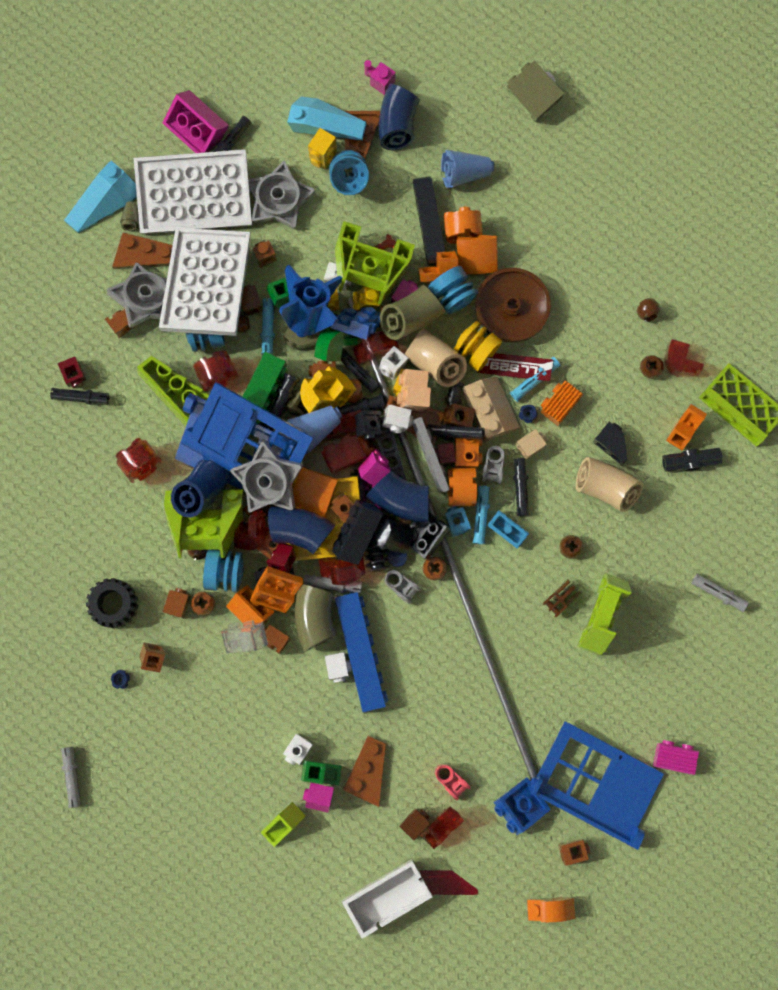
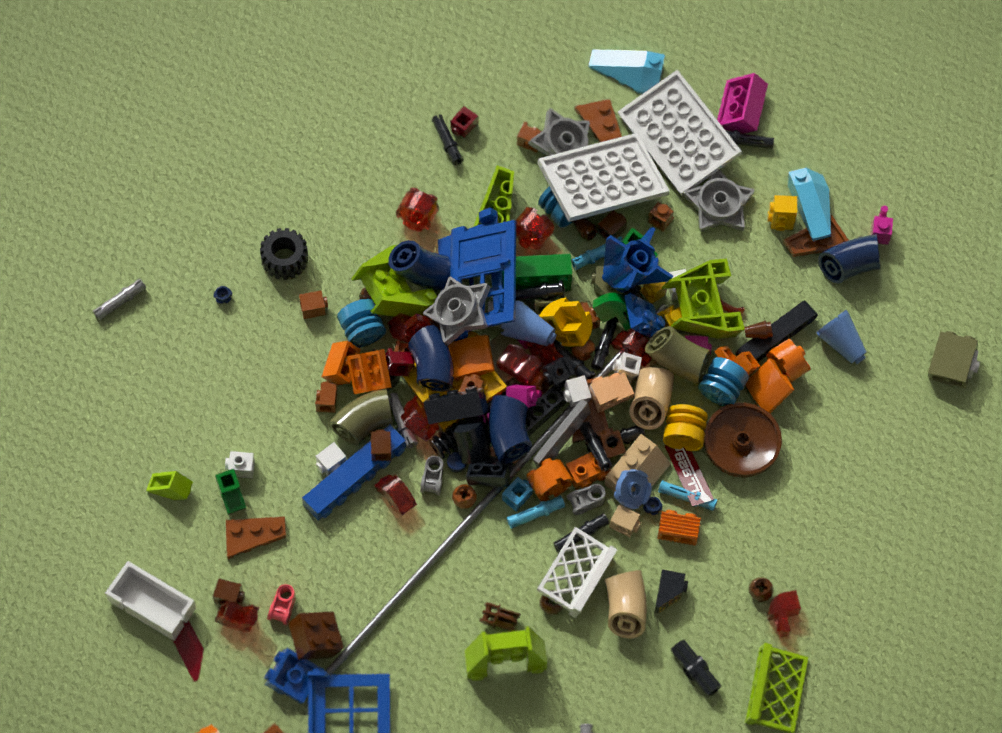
camera: 60 degrees right, 15 degrees down
(129, 218) = (624, 97): olive cone -> none
(152, 657) = (255, 307): dark orange brick -> none
(197, 599) = (325, 318): dark orange piece -> none
(244, 637) = (313, 368): clear brick -> none
(318, 797) = (208, 499): dark pink brick -> none
(351, 182) = (765, 240): dark azure wheel -> none
(354, 617) = (381, 445): none -> reddish brown brick
(400, 627) = (396, 493): none -> clear red brick
(424, 232) = (759, 330): none -> reddish brown cone
(445, 454) = (570, 451): dark red brick -> none
(499, 768) = (315, 635): none -> reddish brown brick
(508, 529) = (535, 540): dark azure brick -> none
(511, 430) = (624, 485): none -> medium blue plate
(573, 506) = (592, 576): none -> white fence
(648, 309) = (812, 559): reddish brown piece -> none
(686, 427) = (721, 647): orange brick -> none

